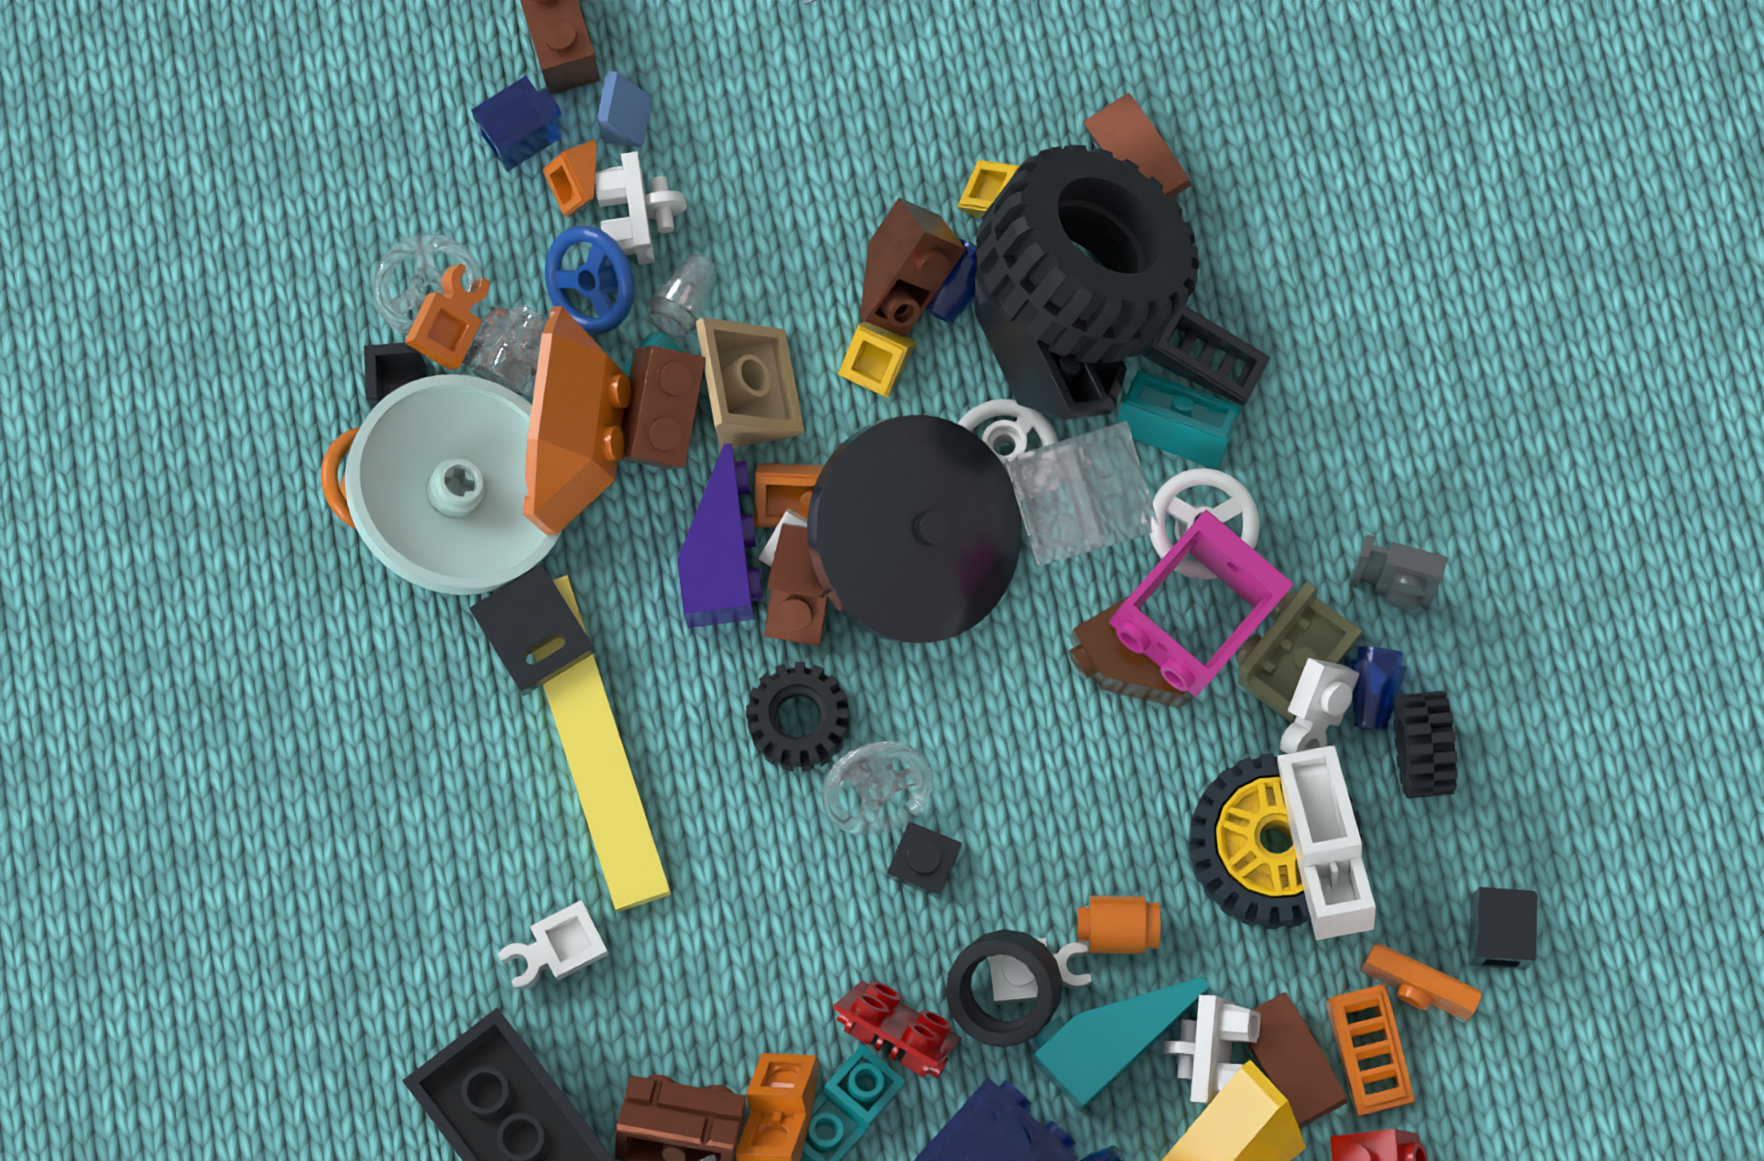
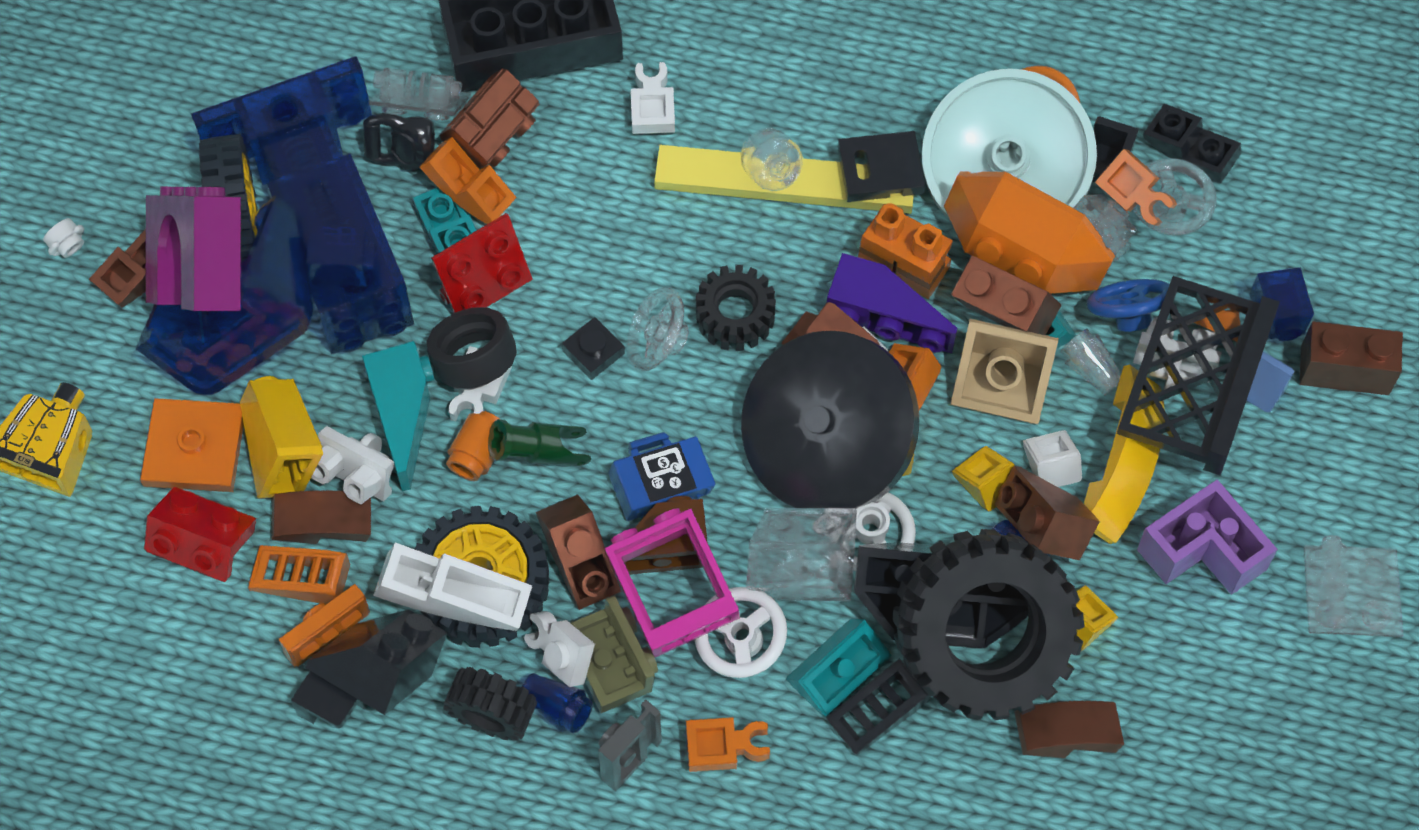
camera: 110 degrees right, 10 degrees down
(333, 300) = (1183, 137): none -> black slope
(594, 748) = (771, 159): none -> clear head
(637, 554) = (907, 248): none -> orange hips
(676, 112) = (1231, 394): none -> black fence
(780, 204) = (1128, 467): none -> yellow slope
(820, 296) = (1054, 458): none -> white slope
(846, 91) = (1211, 530): none -> medium lavender brick
(1054, 702) = (659, 474): none -> blue piece
(1092, 854) = (536, 443): none -> dark green piece
(1190, 747) = (578, 551): none -> copper slope
(1334, 497) = (715, 743): none -> orange plate
(1437, 890) = (382, 658): none -> black slope

